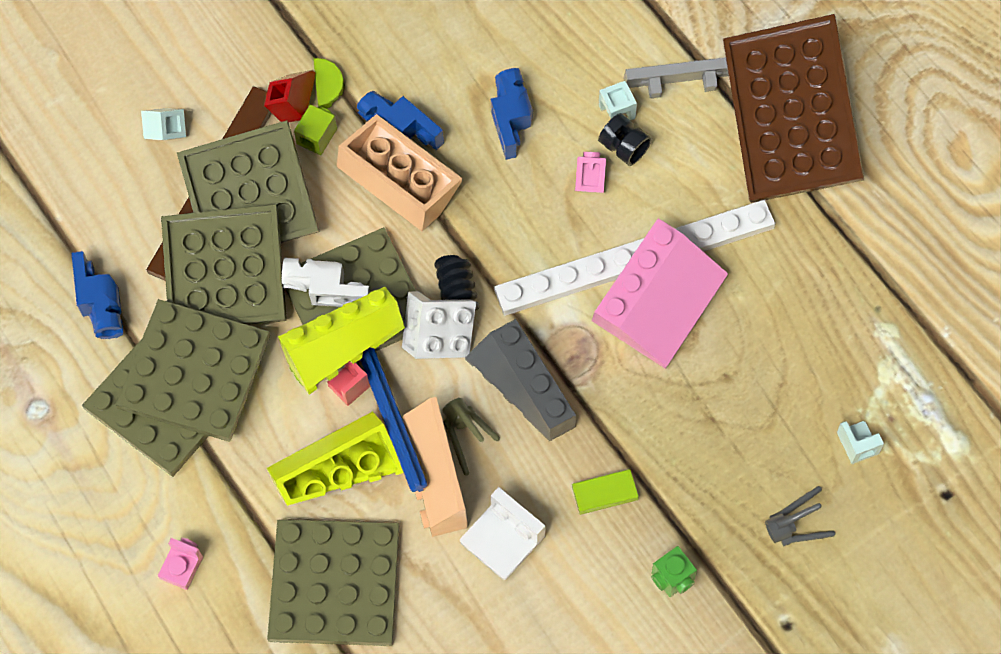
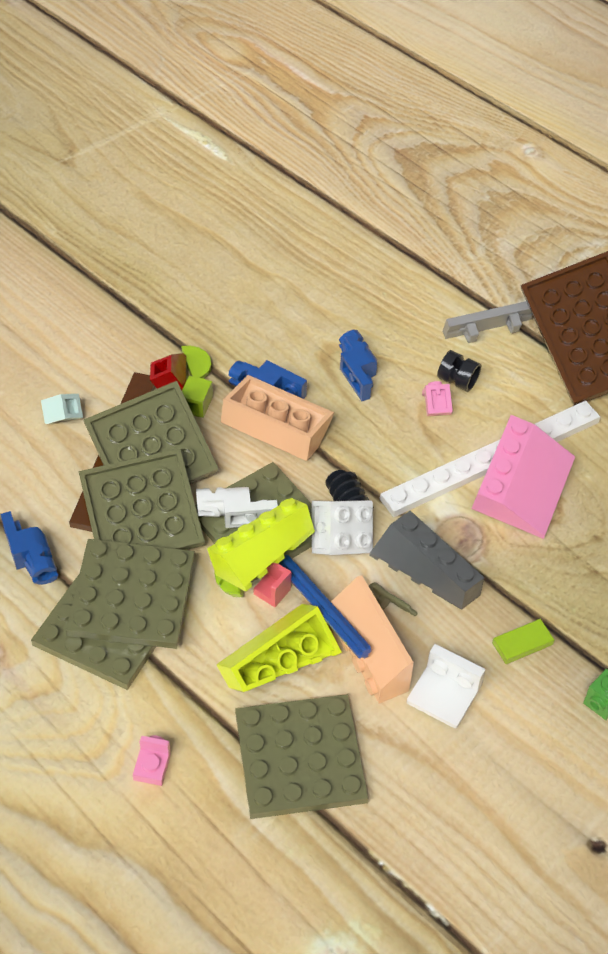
camera: 15 degrees left, 15 degrees down
(618, 100) = (444, 341): light aqua panel -> none

